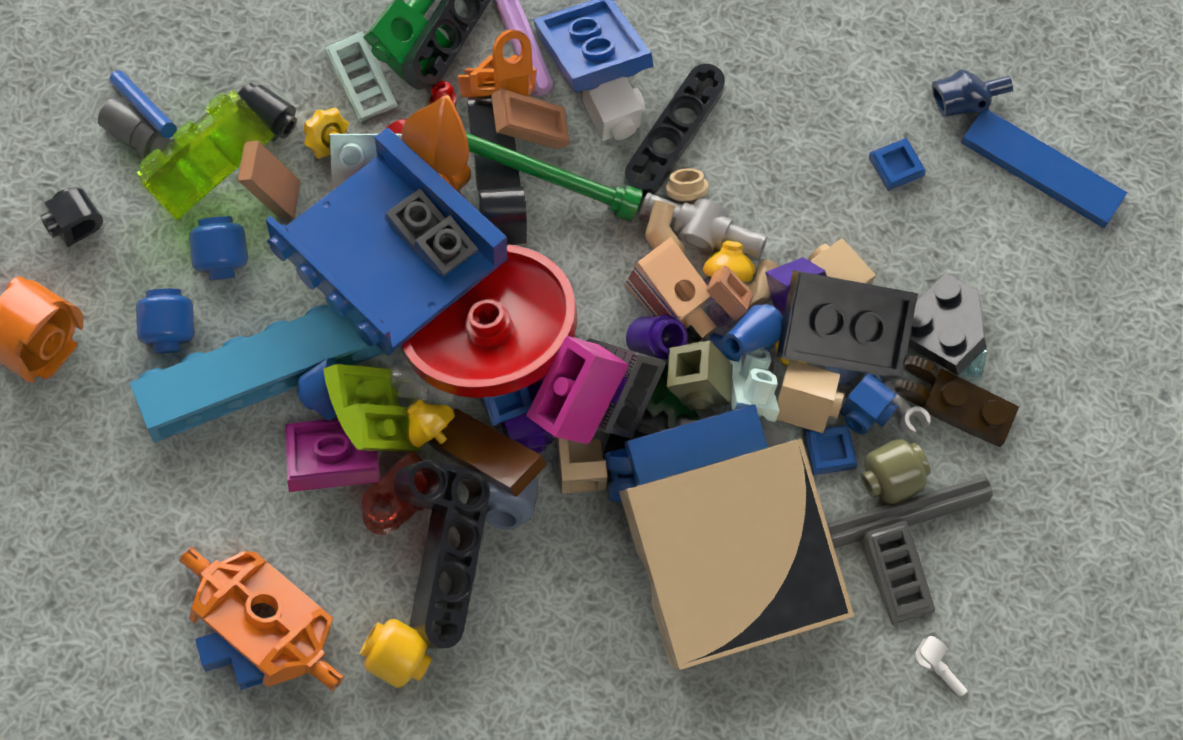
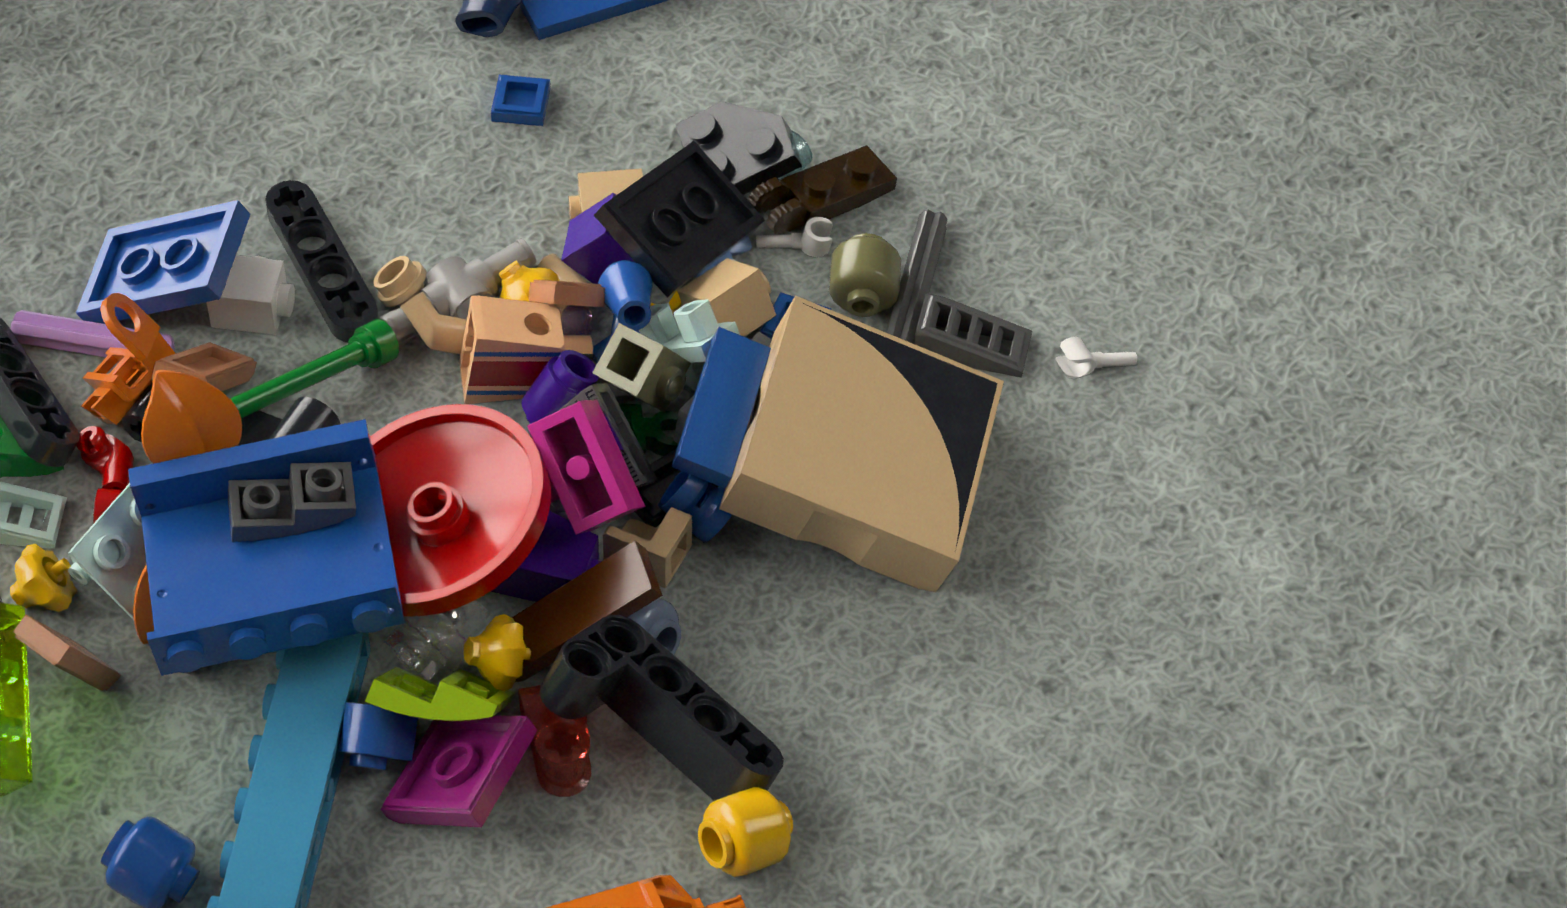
camera: 55 degrees left, 15 degrees down
(218, 247) = (101, 760): blue head -> none
(507, 406) = (541, 564): blue slope -> none
(868, 404) = (777, 257): blue plate -> none

